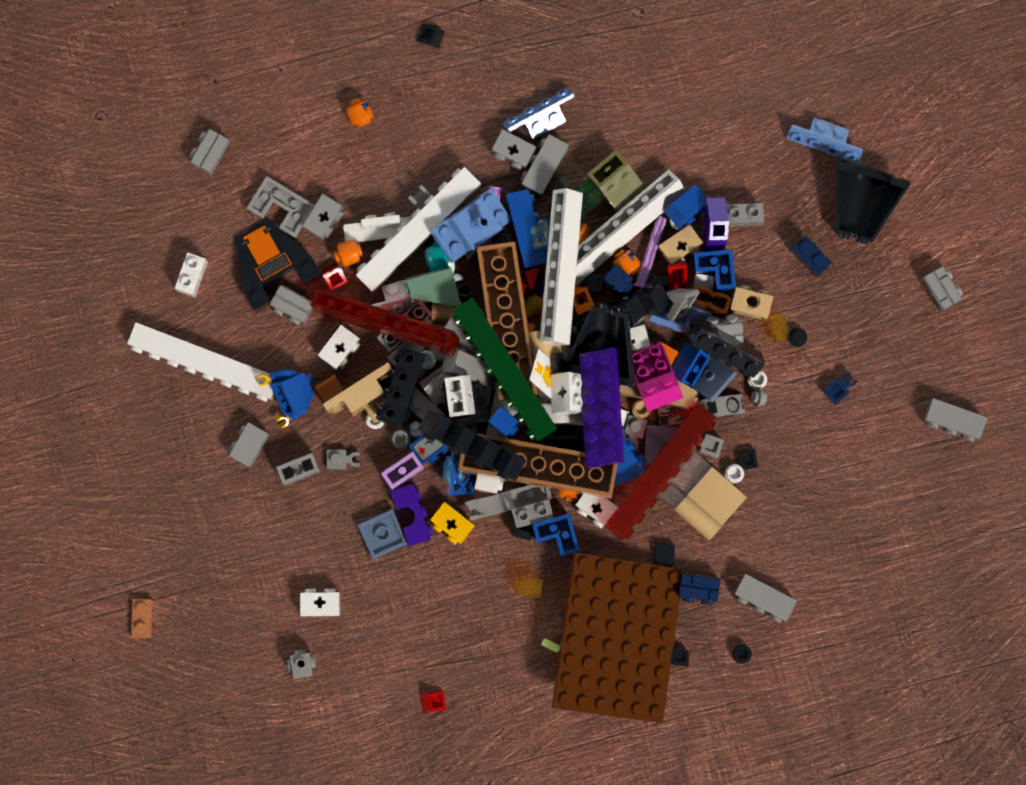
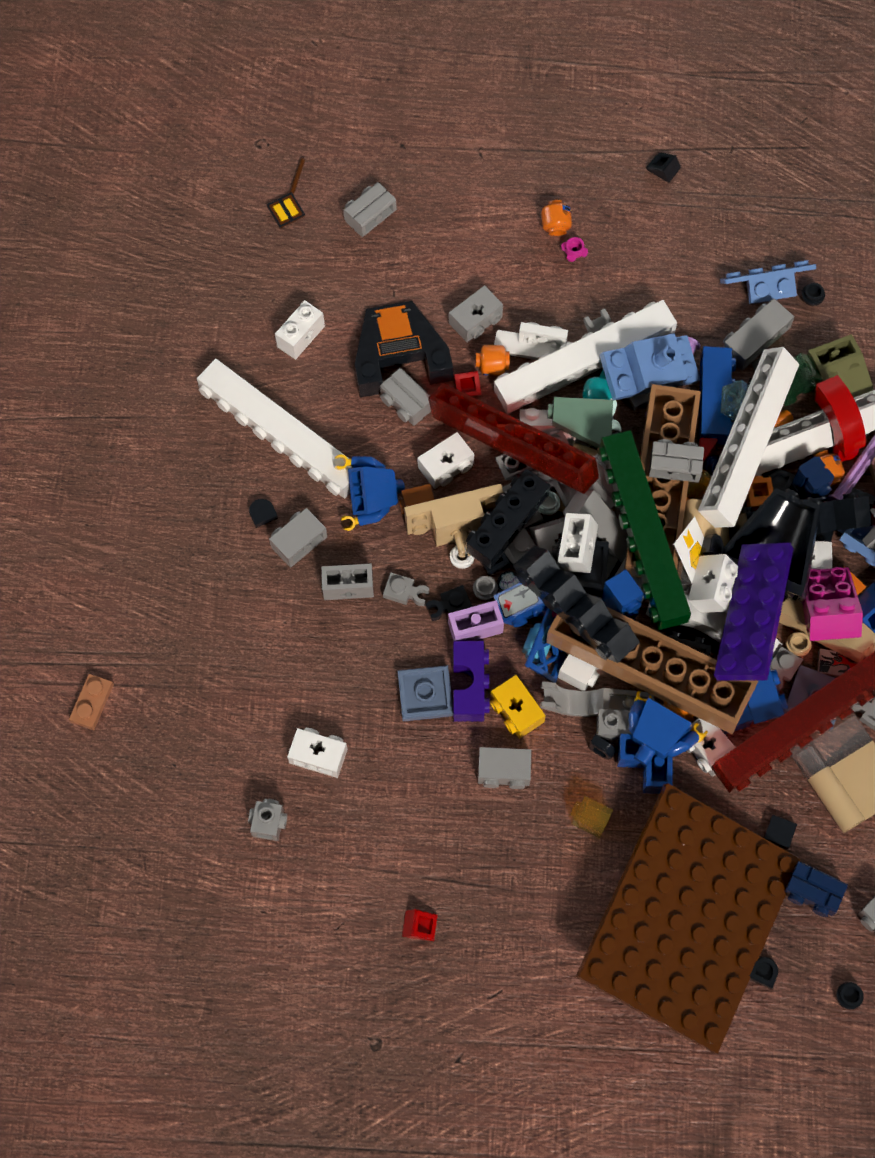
camera: 25 degrees right, 15 degrees down
(141, 169) = (287, 209): none -> piece
(214, 432) = (262, 512): none -> black tile
(295, 205) = (445, 290): light grey plate -> none
(380, 457) = (451, 601): none -> black plate
(381, 129) = (574, 243): none -> dark pink plate
(457, 571) = (504, 767): none -> light grey brick
(509, 141) = (725, 306): light grey brick -> none
(512, 308) = (676, 461): none -> light grey brick
(551, 645) = (597, 900): yellowish green tile -> none
(559, 515) = (660, 730): none -> blue torso
(578, 115) = (813, 294): none -> black plate
(625, 223) = (843, 416): none -> red arch

